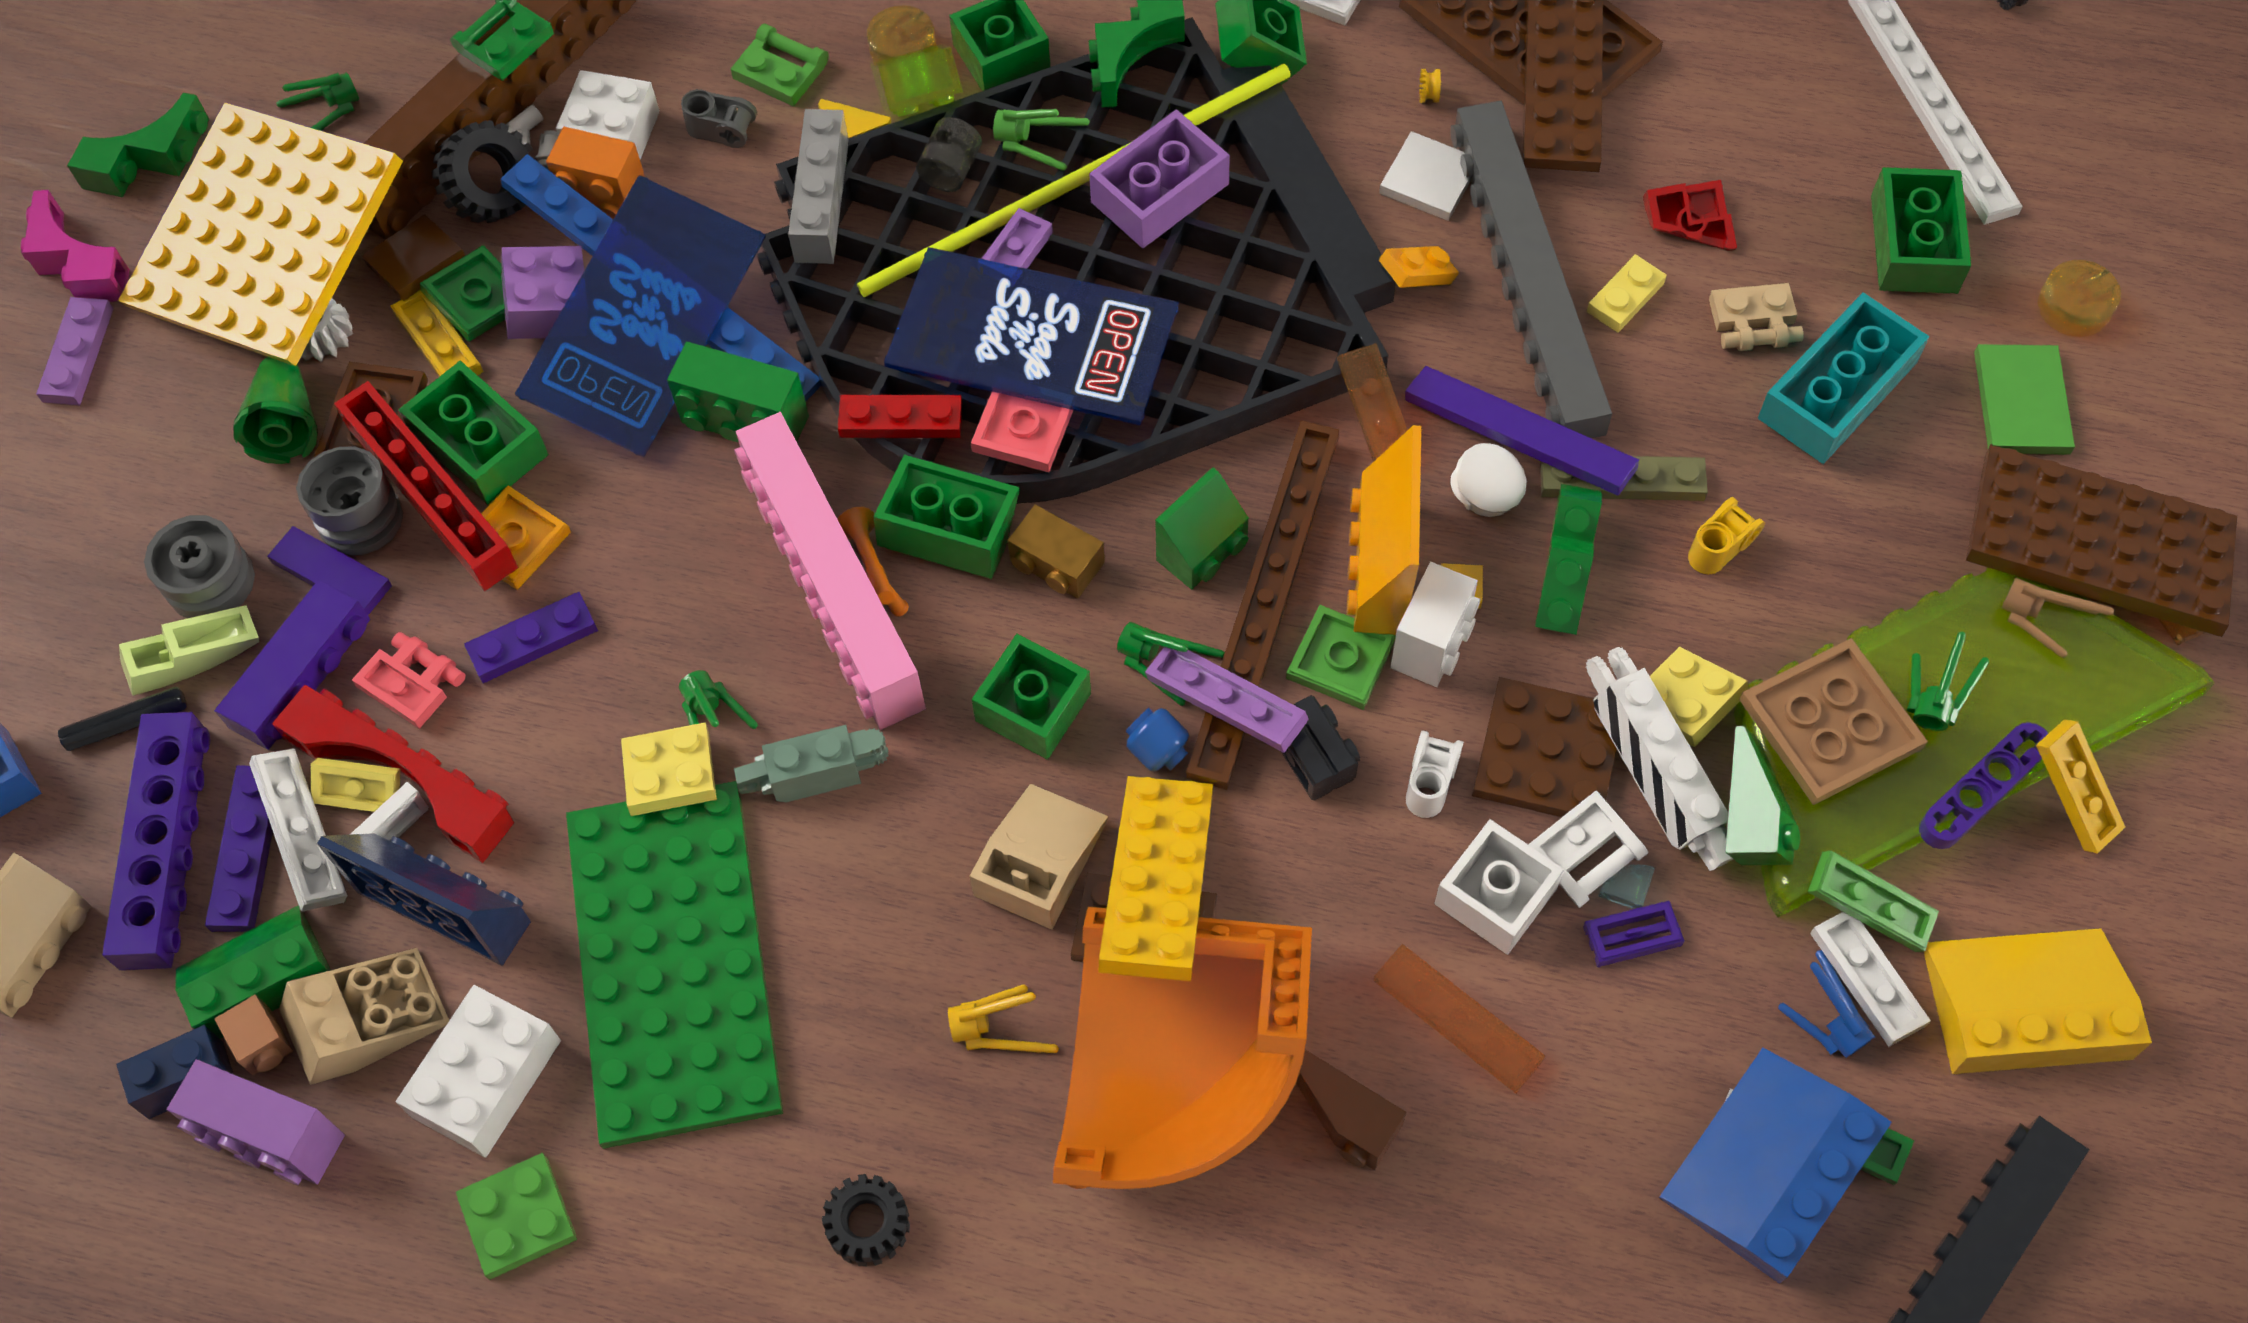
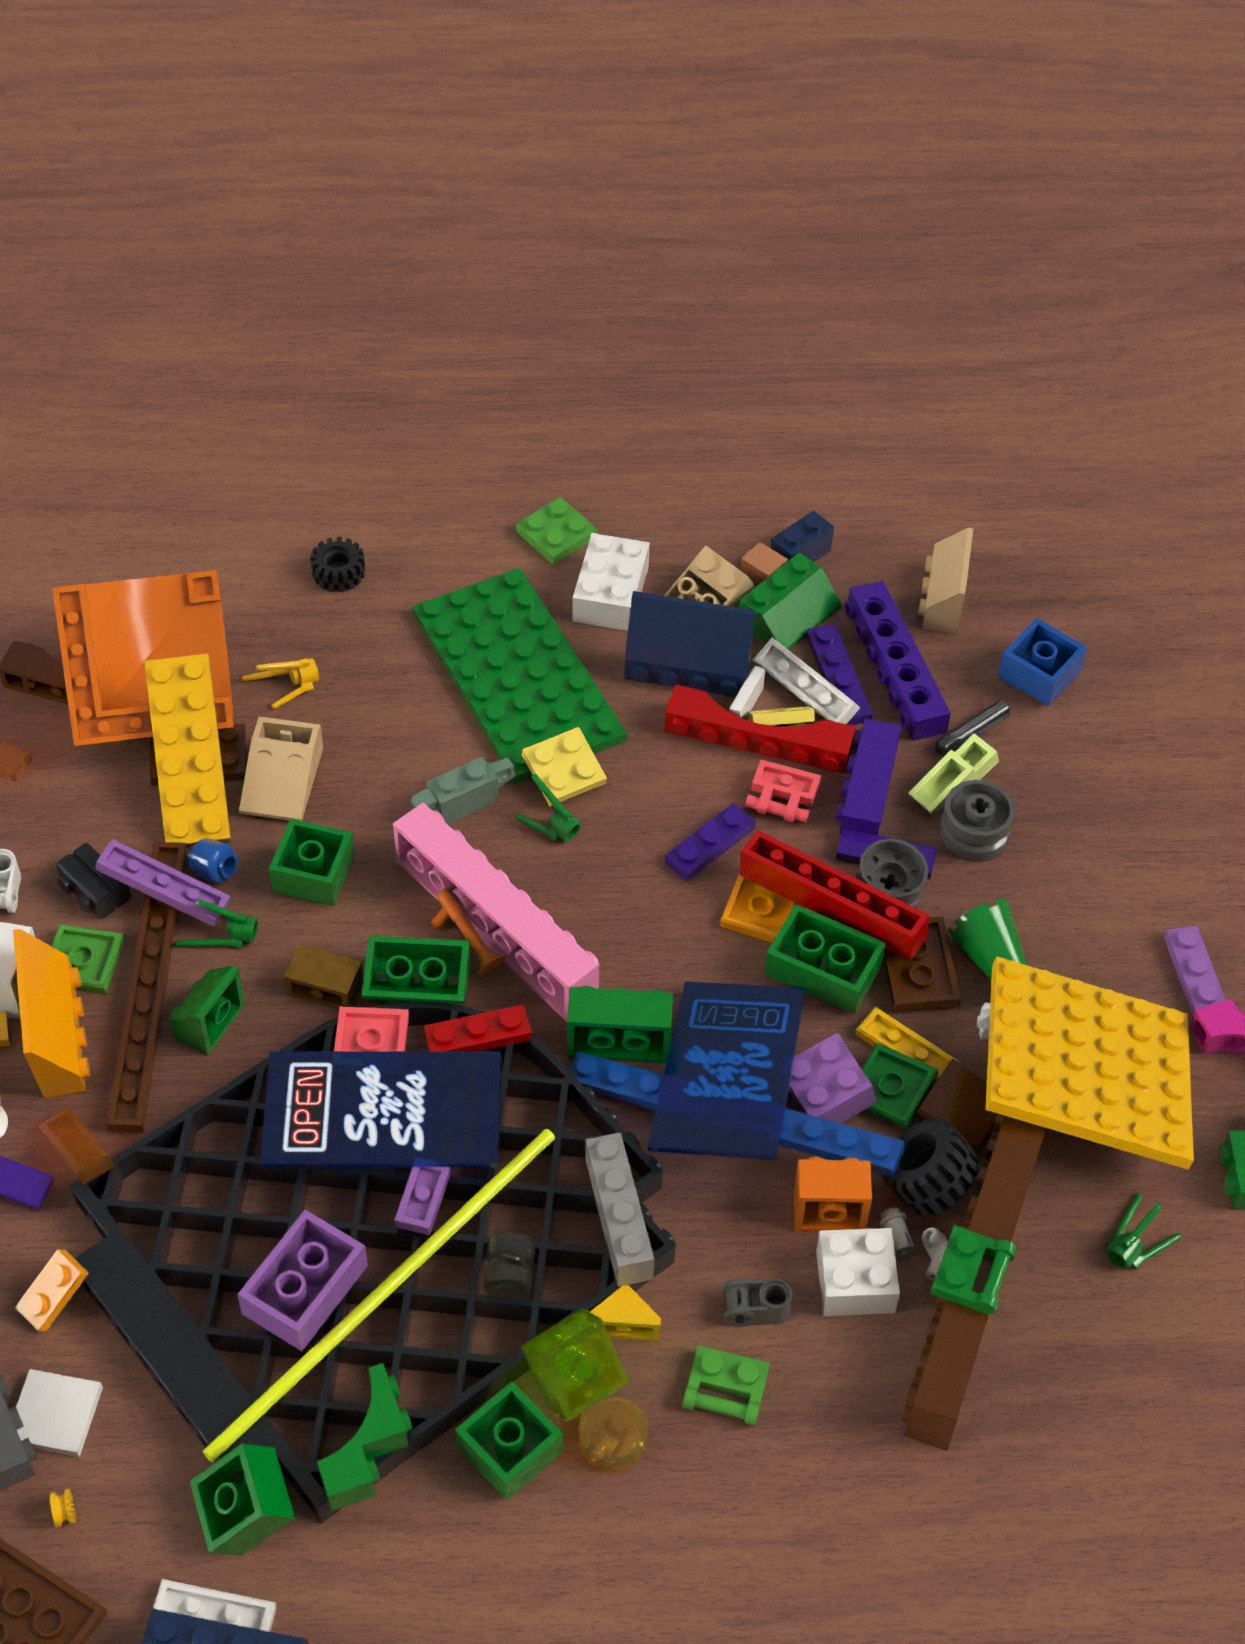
camera: 160 degrees right, 10 degrees down
(255, 1124) = (729, 519): medium lavender brick -> none
(1014, 126) = (459, 1317): bright green plant -> none

